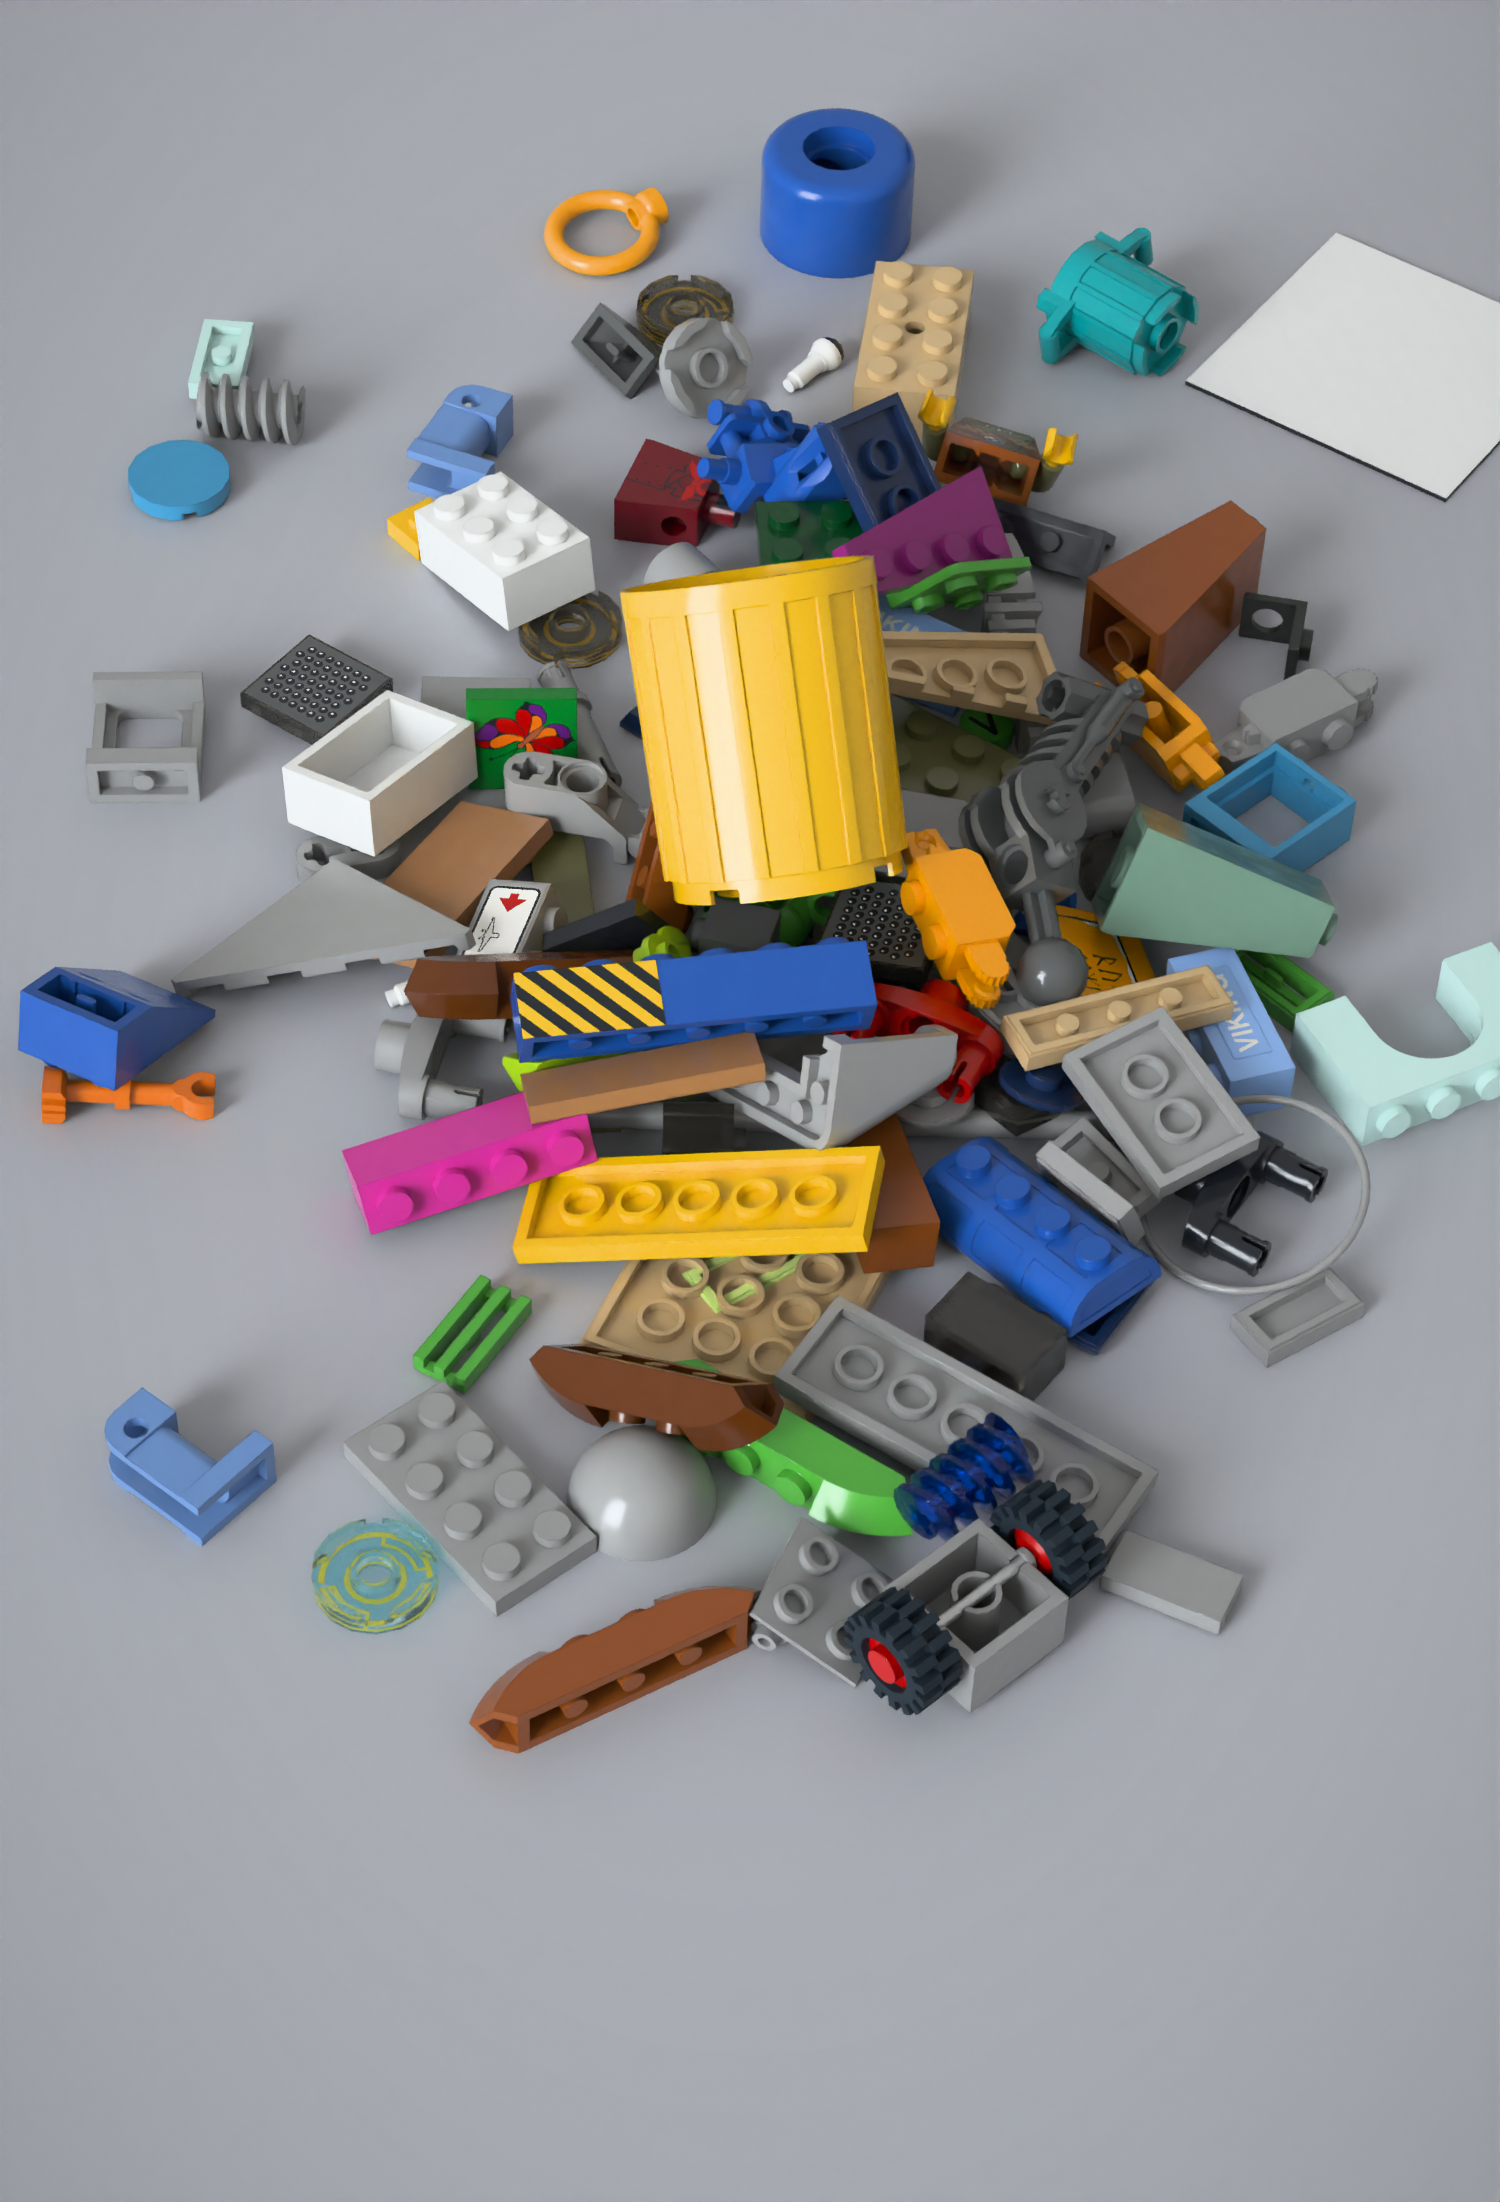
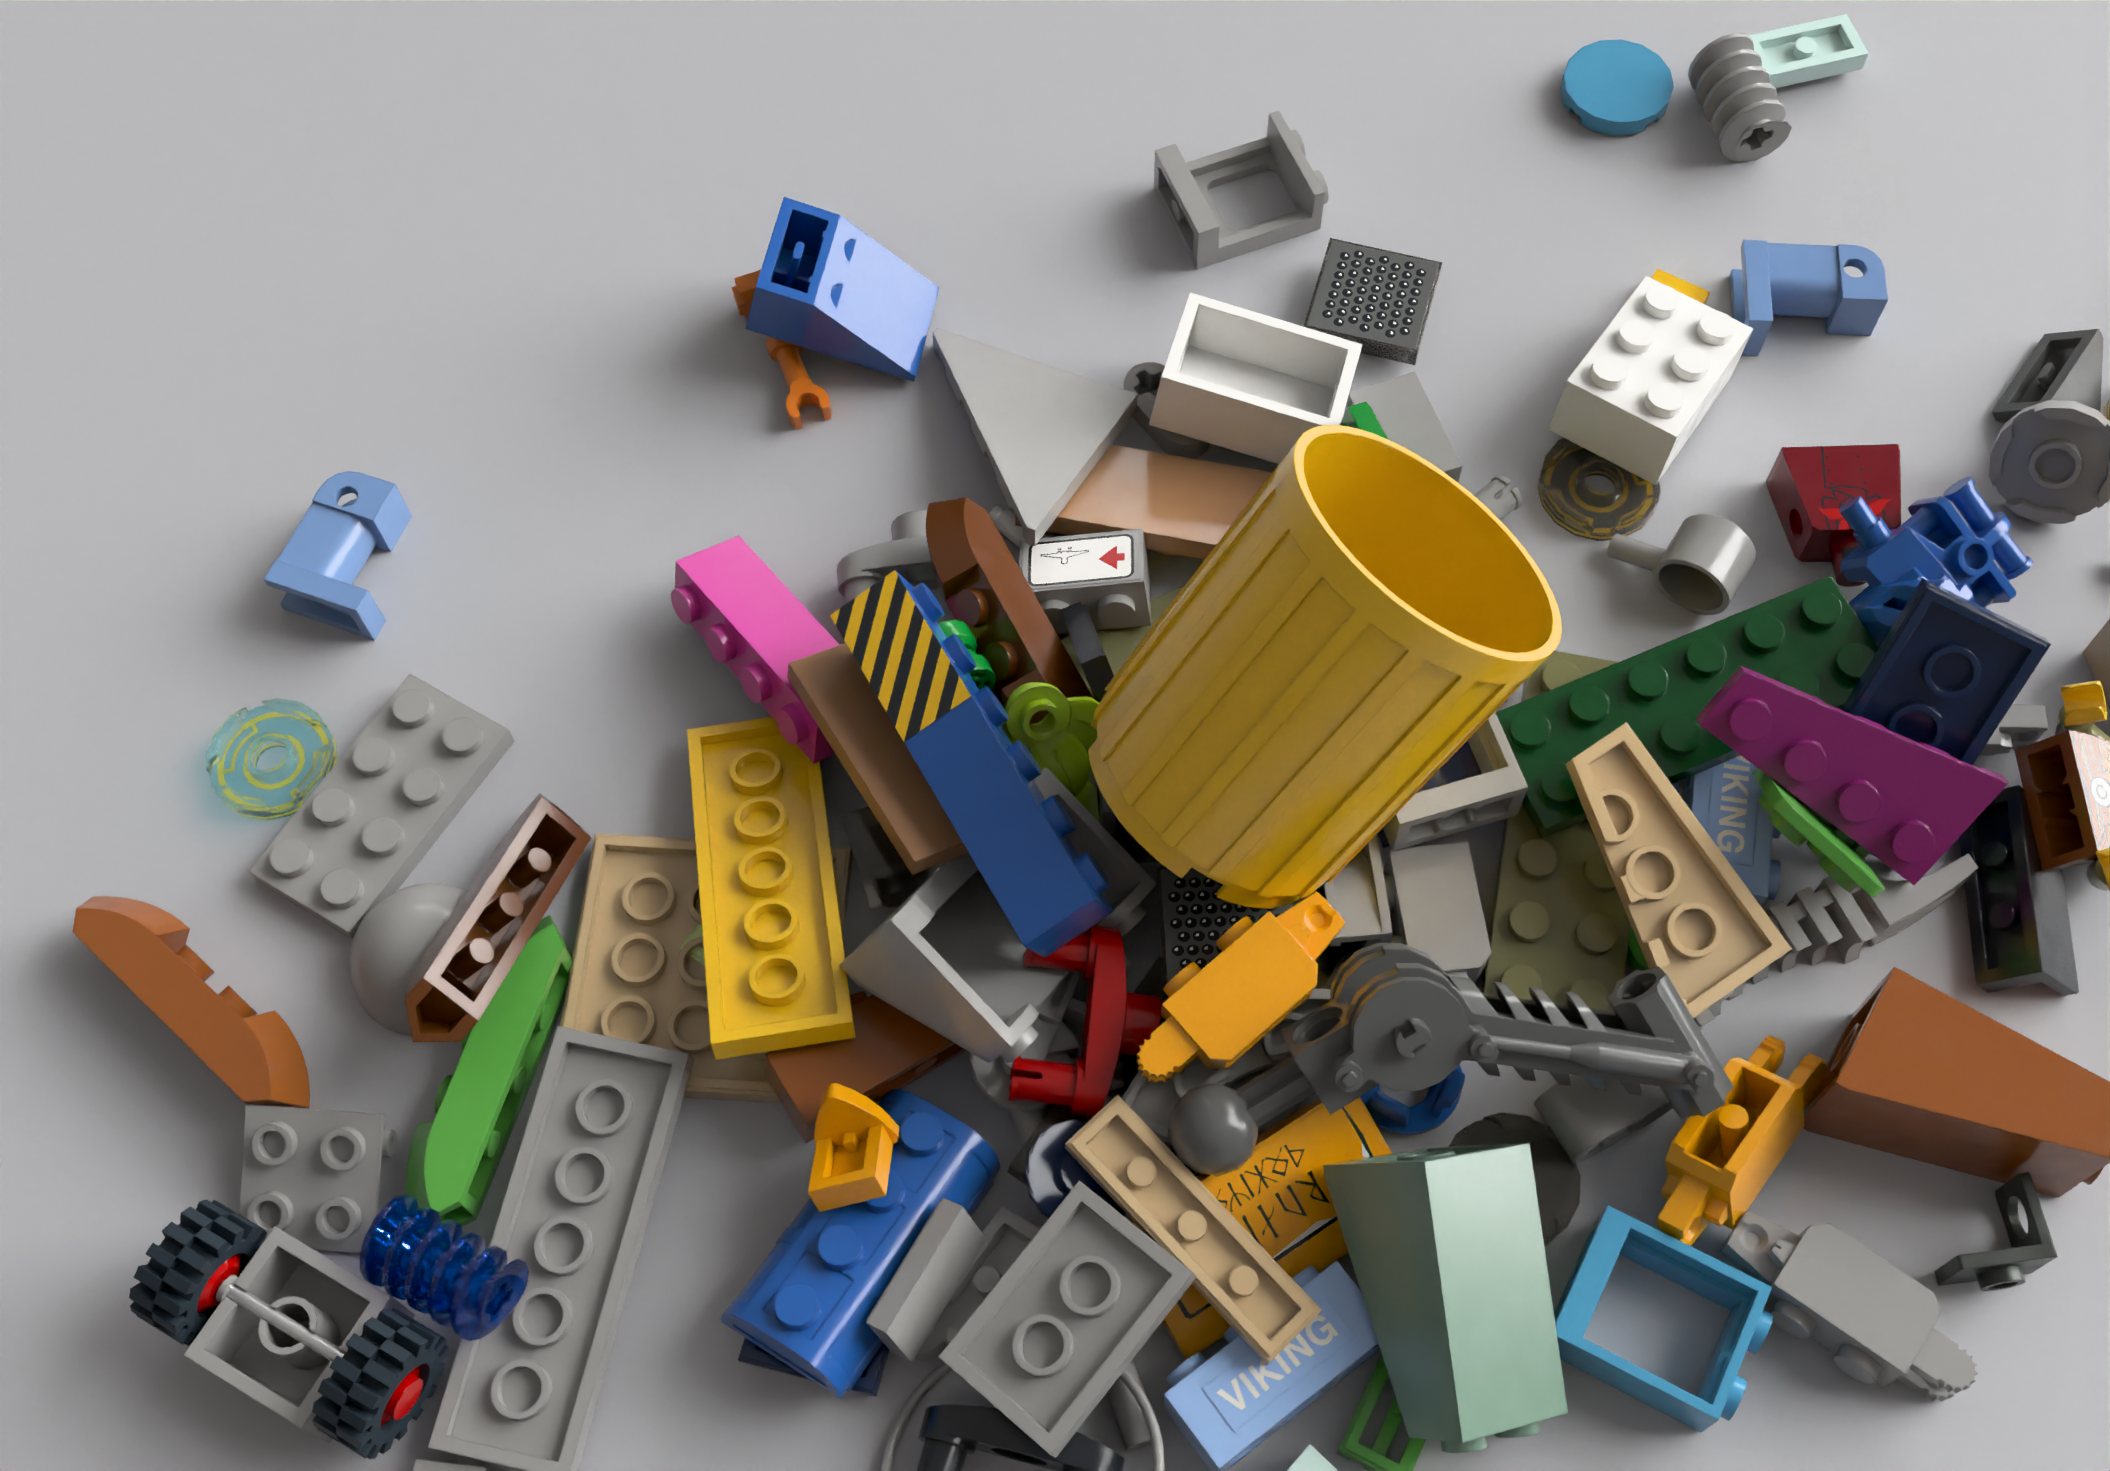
camera: 75 degrees right, 15 degrees up
(495, 1300) = (586, 714): bright green tile -> none
(977, 1195) = (851, 1149): none -> light orange tile
(997, 1336) = (707, 1240): clear smoke brick -> none

